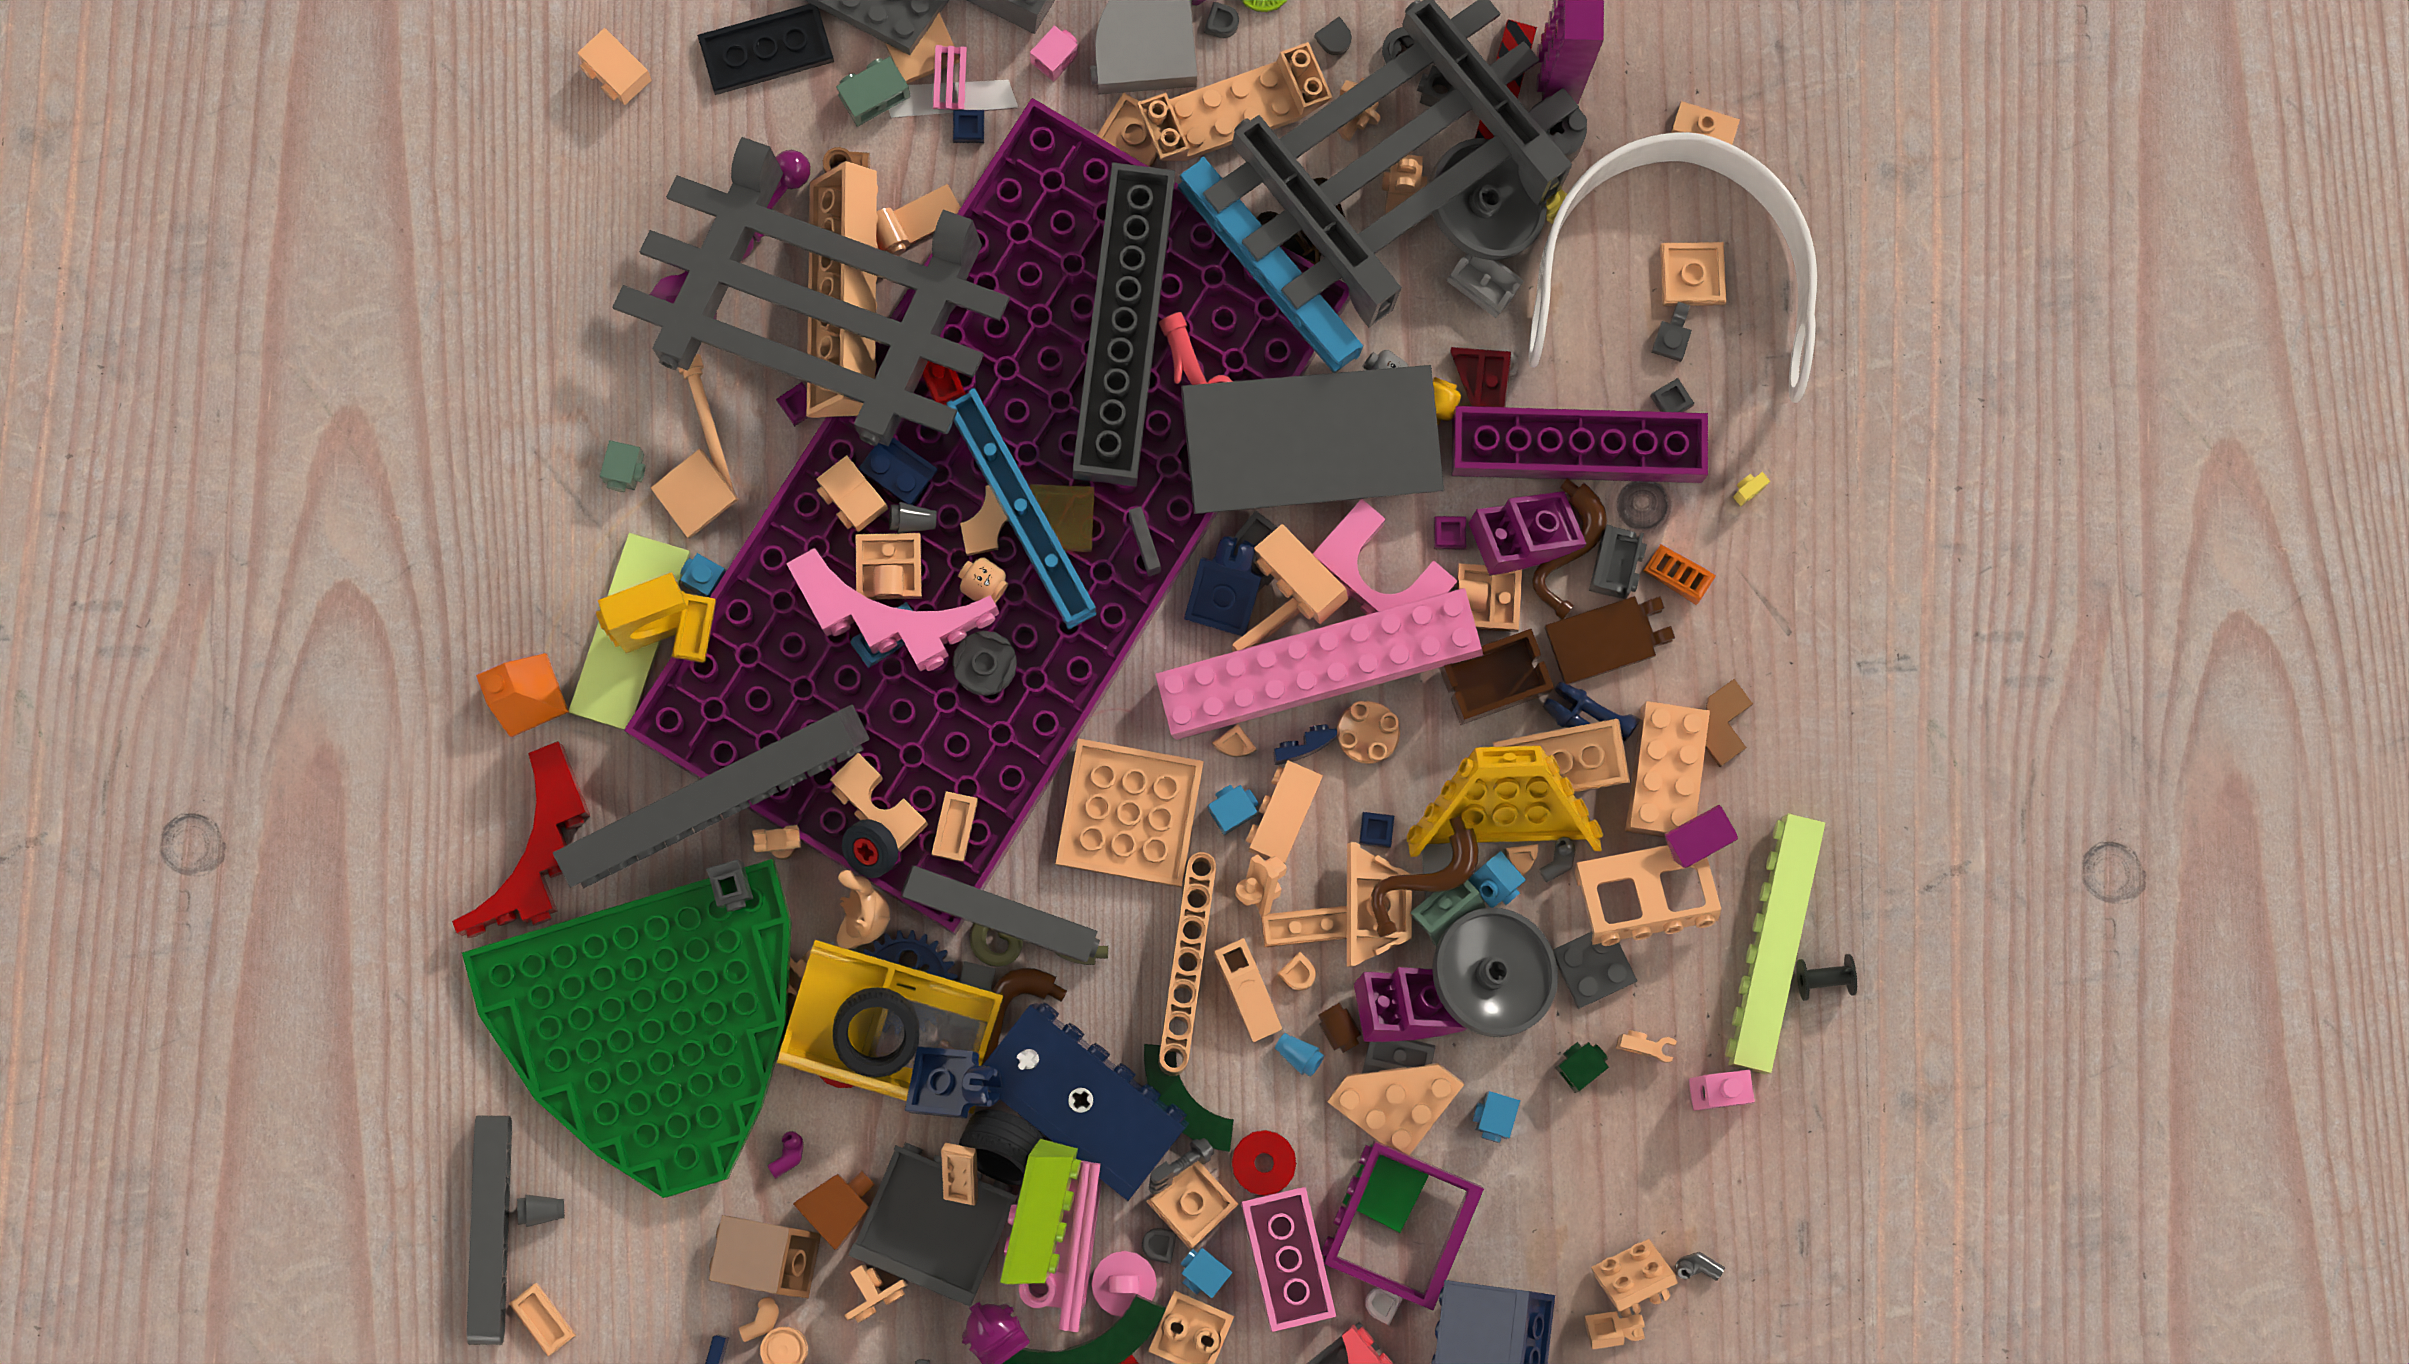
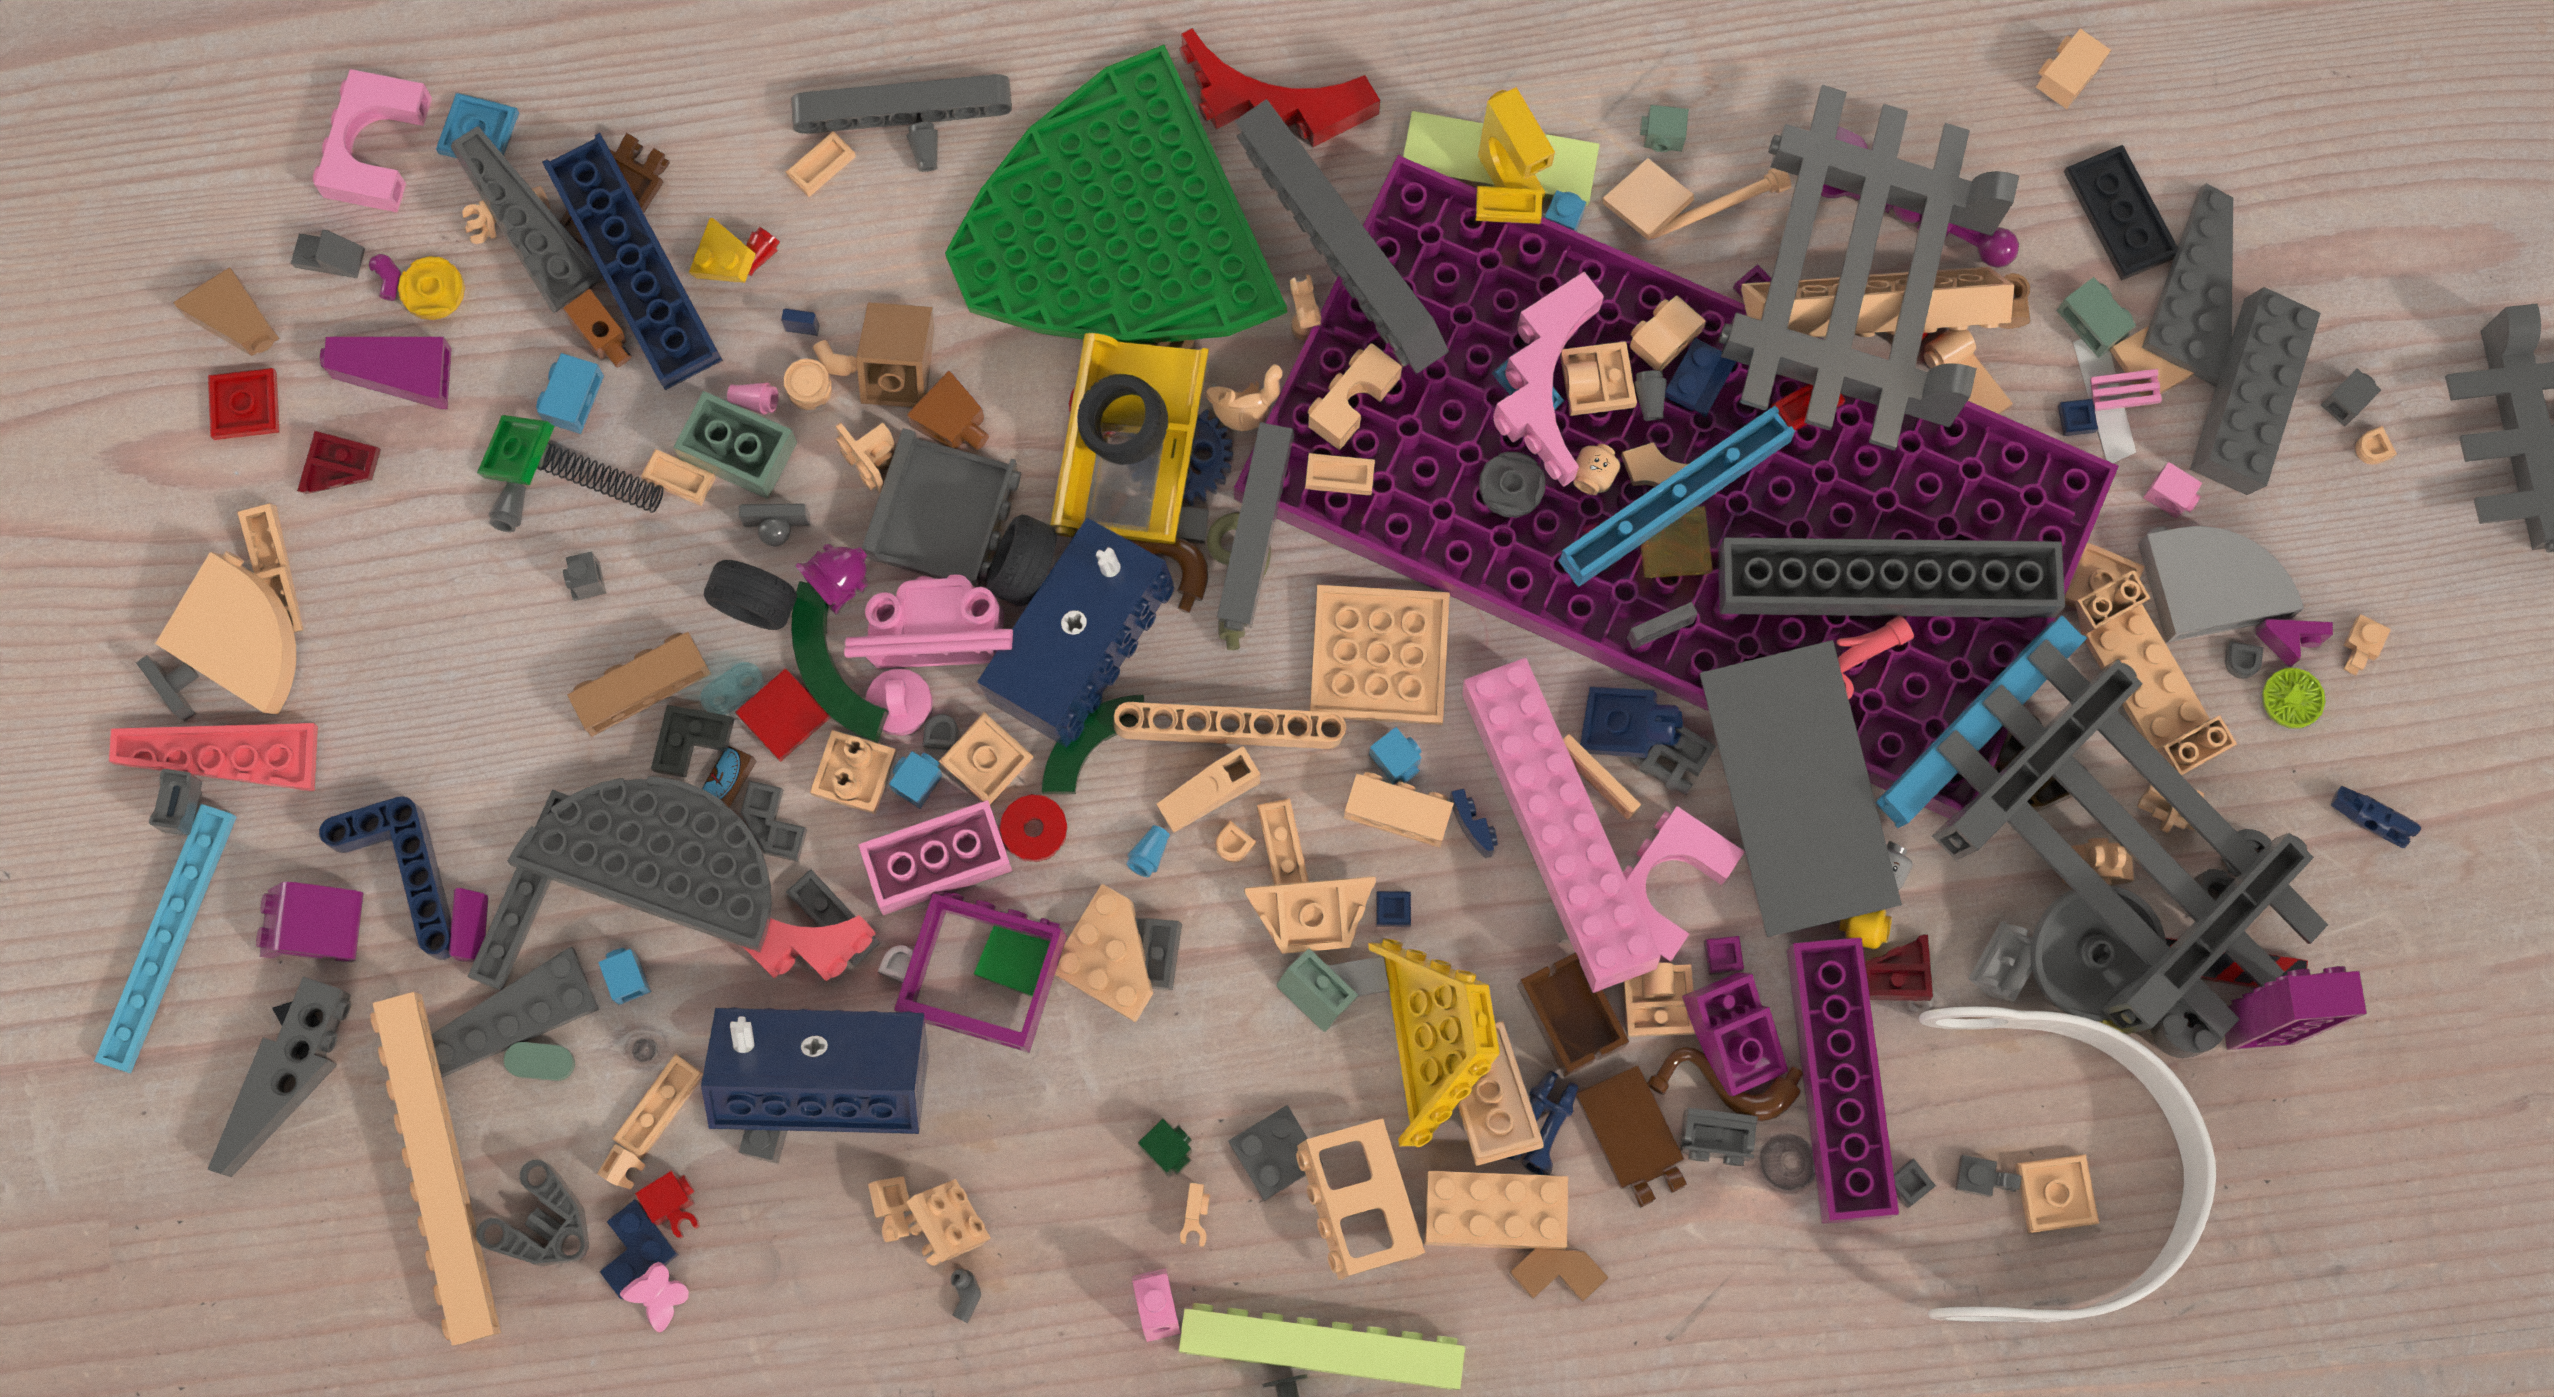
camera: 90 degrees right, 5 degrees down
(523, 693) = (1424, 65): orange slope -> none
(727, 870) = (1258, 277): dark grey window -> none
(791, 1154) = (996, 369): magenta arm -> none
(878, 839) = (1306, 390): black bush -> none
(950, 1083) = (1078, 496): dark blue plate -> none
(959, 1174) = (990, 520): light nougat plate -> none
(1040, 1213) = (954, 590): lime slope -> none
(1163, 1175) = (1007, 720): dark grey hinge -> none
(1234, 743) = (1466, 754): light nougat tile -> none
(1261, 883) = (1320, 790): light nougat hips -> none
(1300, 574) = (1651, 791): light nougat brick -> none
(1334, 37) = (2249, 779): dark grey tile -> none
(1339, 1028) = (1180, 889): reddish brown brick -> none
(1368, 732) = (1496, 888): light nougat dish -> none
(1402, 1006) = (1211, 957): magenta slope -> none
(1457, 872) = (1355, 989): reddish brown animal -> none
(1495, 972) = (1255, 1043): dark grey dish -> none
(1496, 1116) = (1103, 1060): dark azure brick -> none
(1497, 880) = (1353, 1036): dark azure brick -> none
(1522, 857) = (1379, 1064): light nougat tile -> none
(1562, 860) = (1385, 1108): dark grey arm -> none
(1673, 583) = (1703, 1232): orange slope -> none
(1701, 837) = (1425, 1247): magenta slope -> none
(1706, 122) = (2230, 1192): light nougat plate -> none
(1750, 487) = (1824, 1276): light yellow plate -> none

